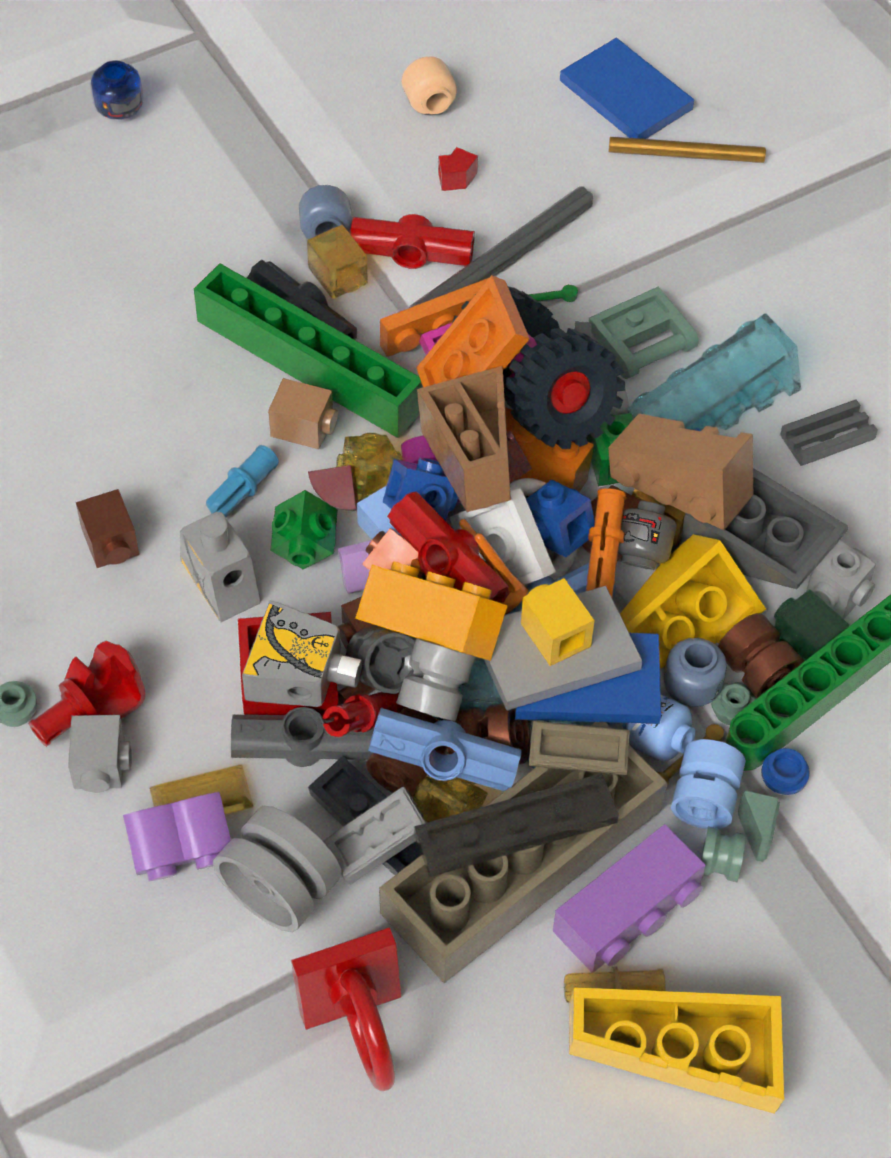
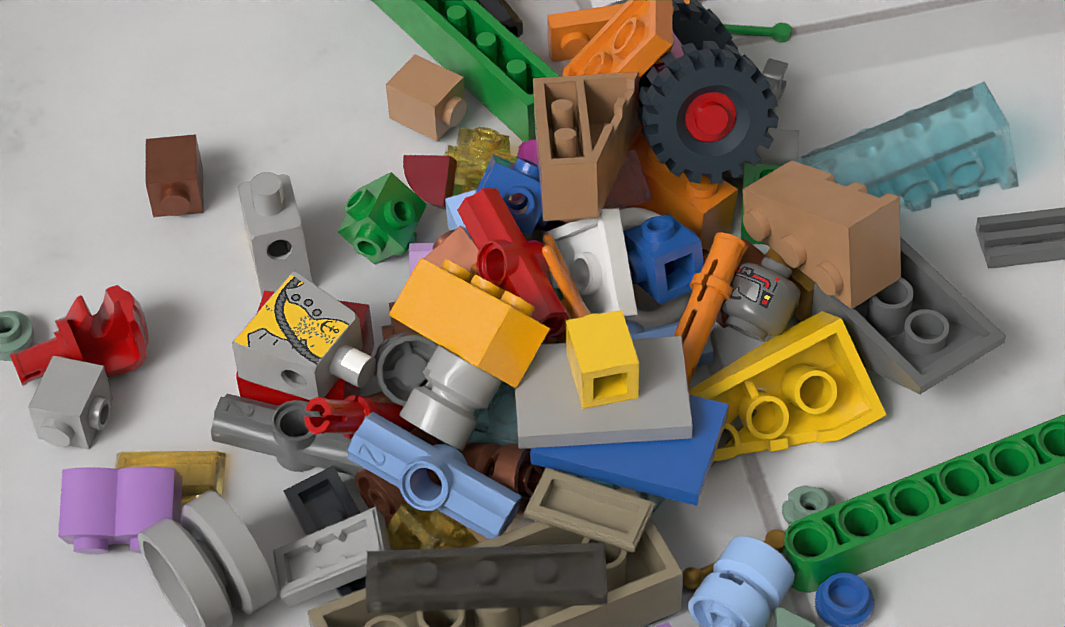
camera: 20 degrees right, 5 degrees down
(242, 481) = (339, 158): dark azure axle -> none
(638, 321) = (848, 74): sand green plate -> none
(664, 739) = (714, 522): light blue head -> none
(695, 672) = (770, 463): sand blue head -> none
(755, 649) = (852, 455): copper wheel -> none
(808, 623) = (922, 438): clear green brick -> none
(843, 578) = (985, 400): light grey brick -> none

